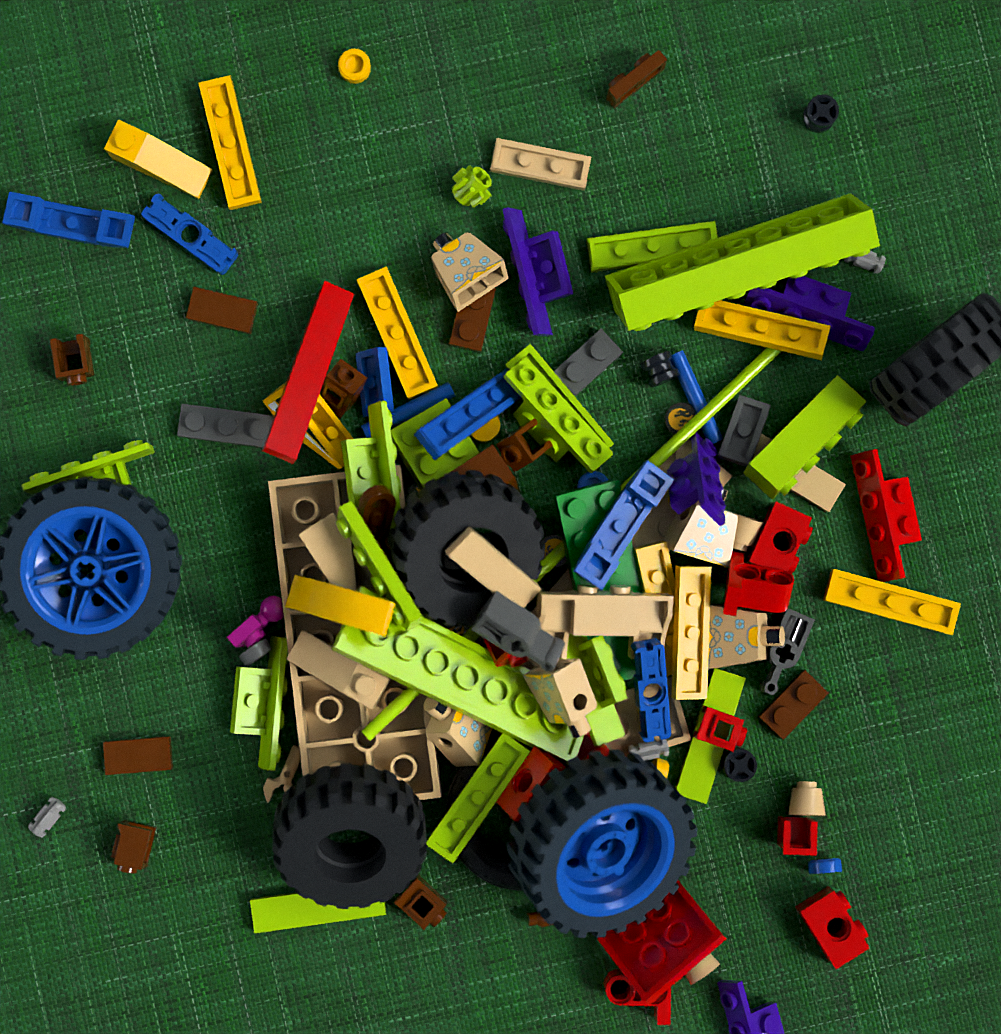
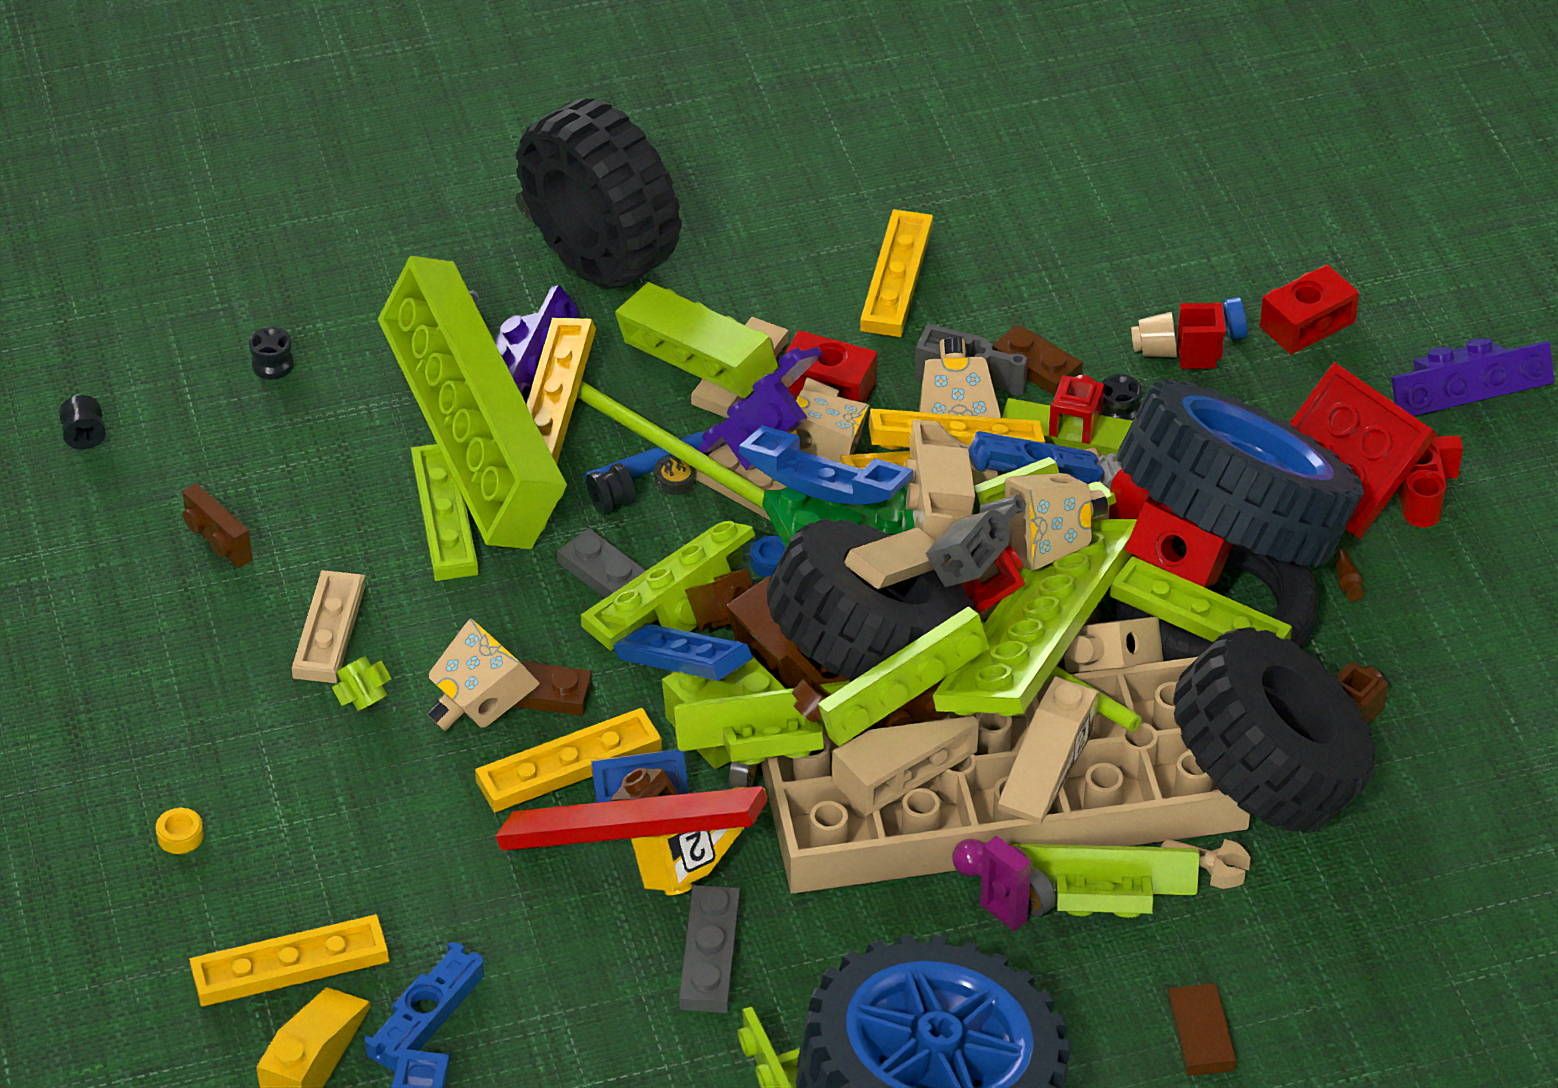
camera: 90 degrees left, 40 degrees down
(133, 846) = (1333, 1016): reddish brown window -> none
(222, 310) = (538, 963): reddish brown tile -> none
(294, 911) = (1389, 832): lime tile -> none
(340, 605) = (958, 727): yellow slope -> none
(416, 406) = (697, 773): blue piece -> none
(539, 267) = (489, 601): dark purple bracket -> none
(744, 431) = (687, 405): dark grey plate -> none
(756, 587) = (892, 373): red tile -> none
(887, 514) = (789, 281): red bracket -> none

